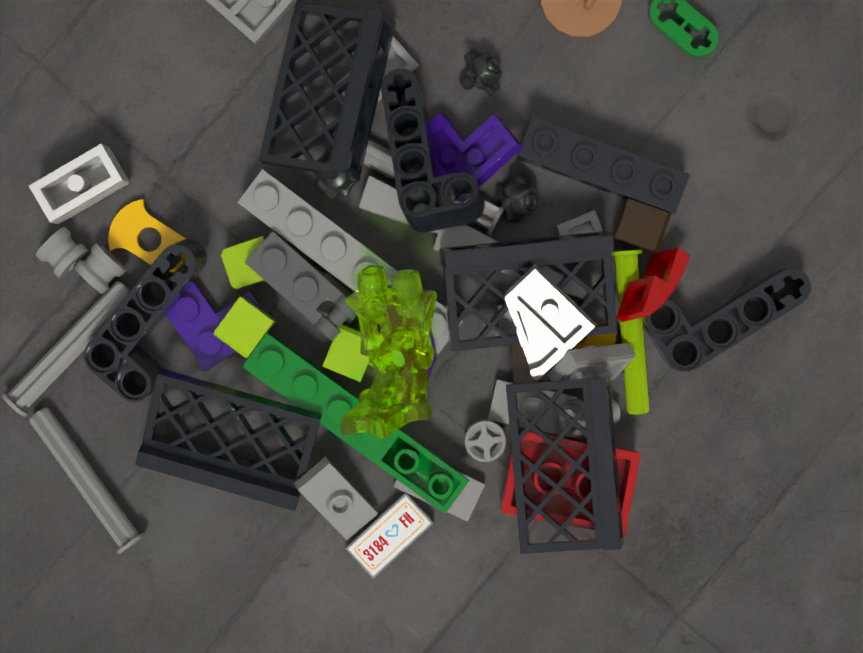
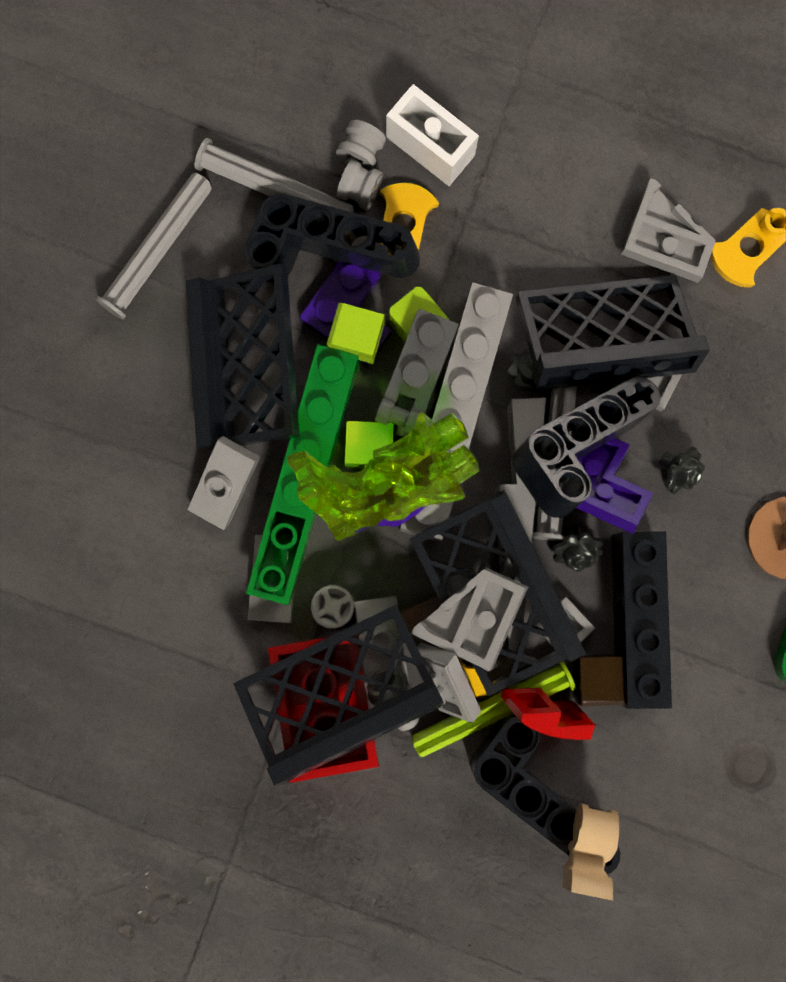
camera: 65 degrees right, 5 degrees down
(389, 535) = (207, 549): white tile -> none
(783, 296) = (592, 846): none -> tan leg

